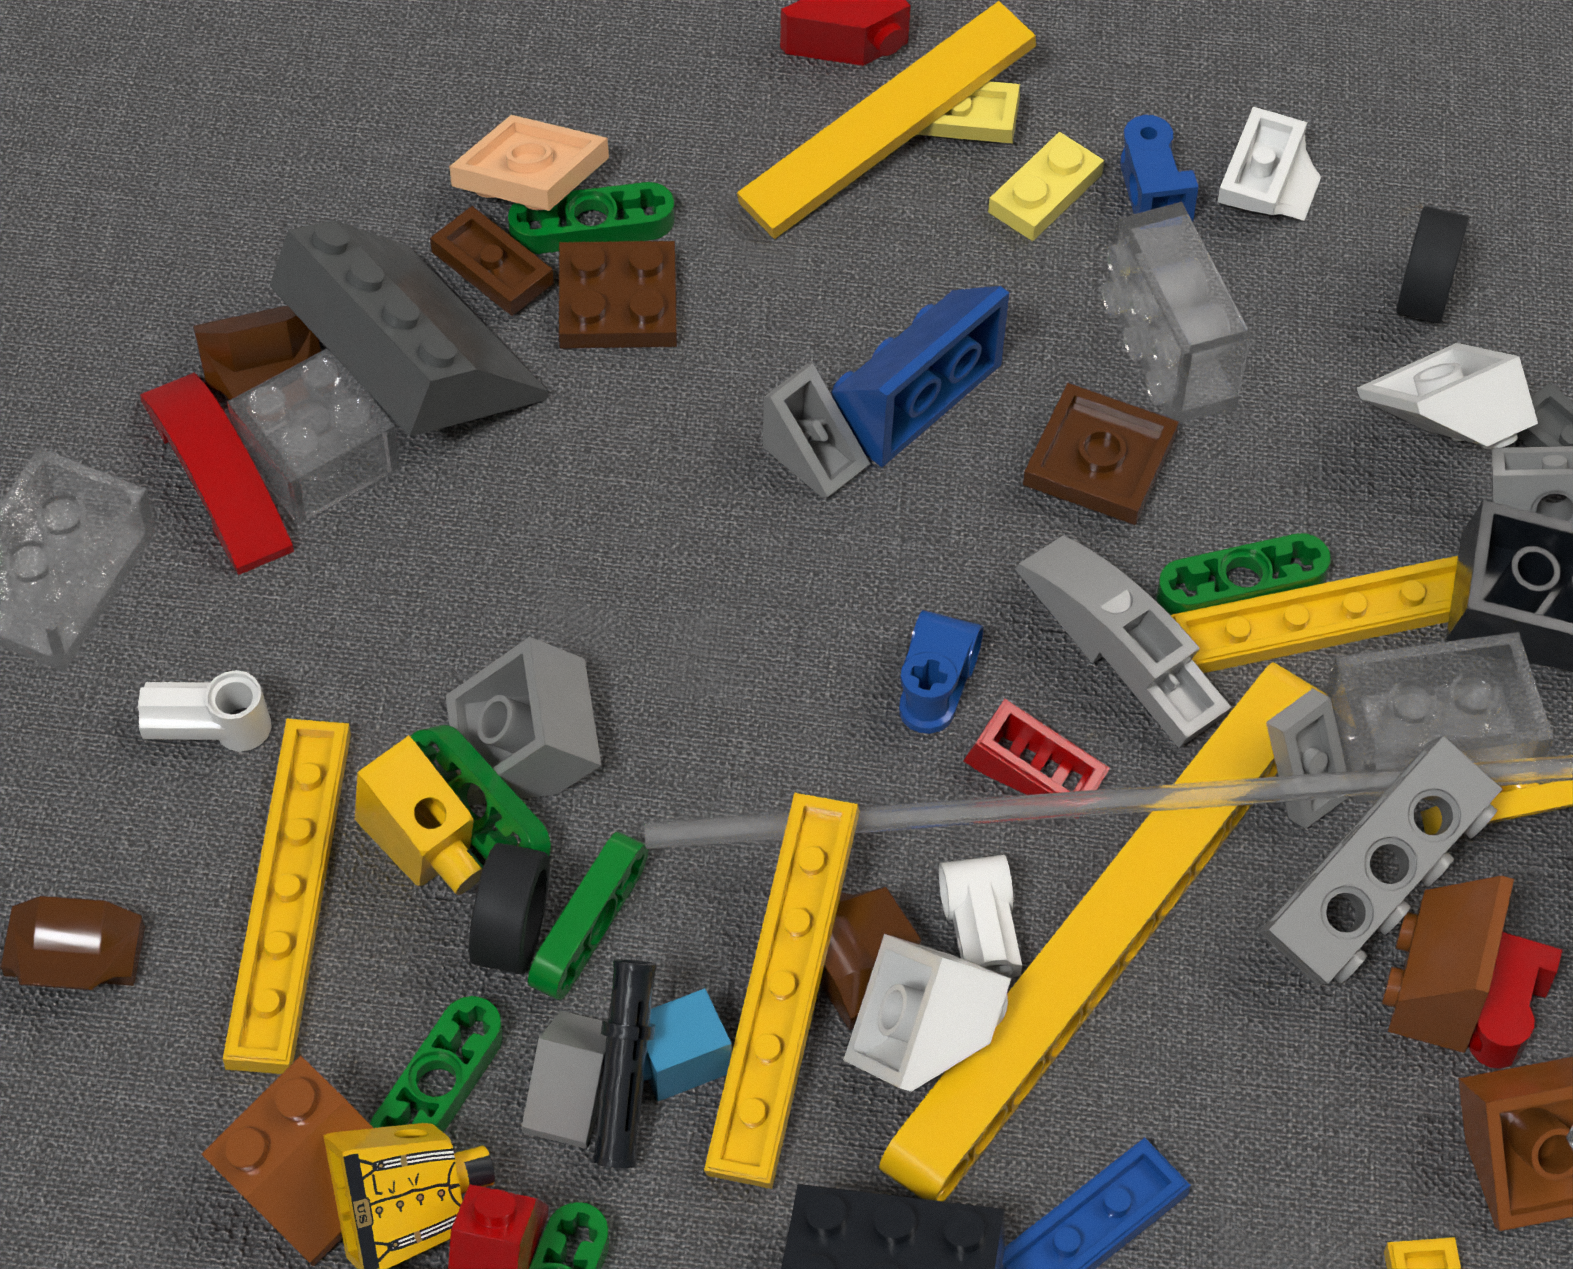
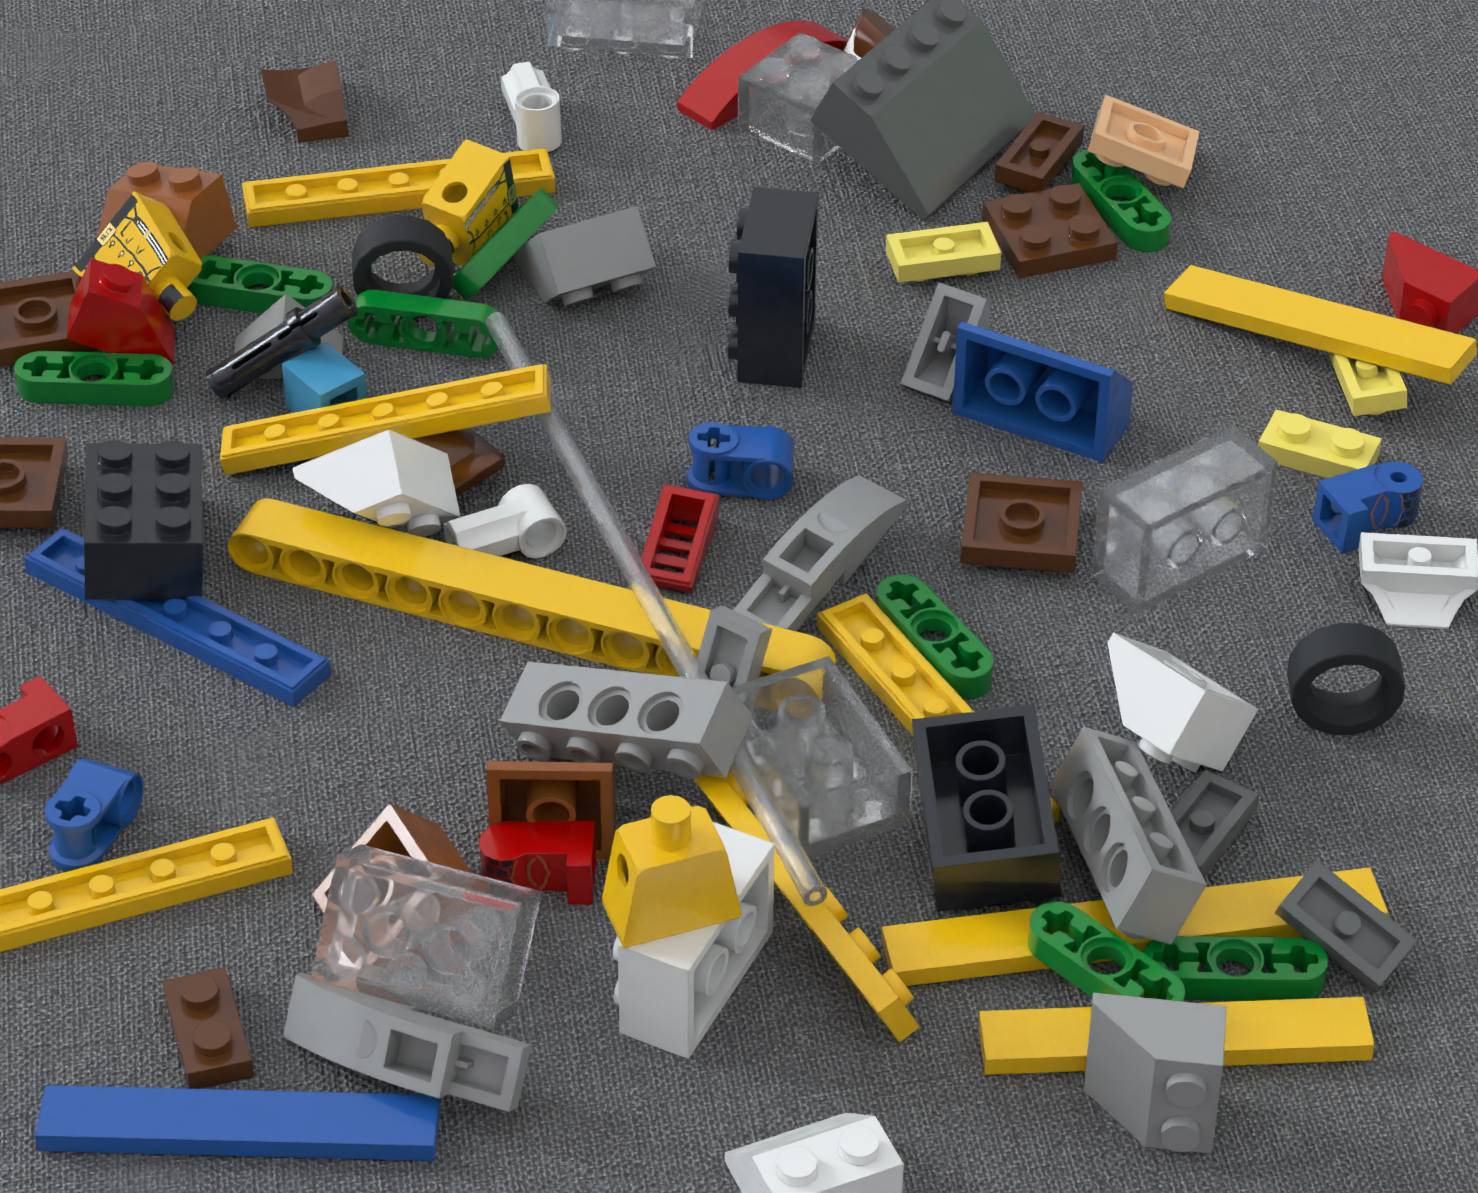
camera: 75 degrees right, 15 degrees down
(634, 394) = (943, 252): none -> light yellow plate
(724, 541) = (774, 286): none -> black brick

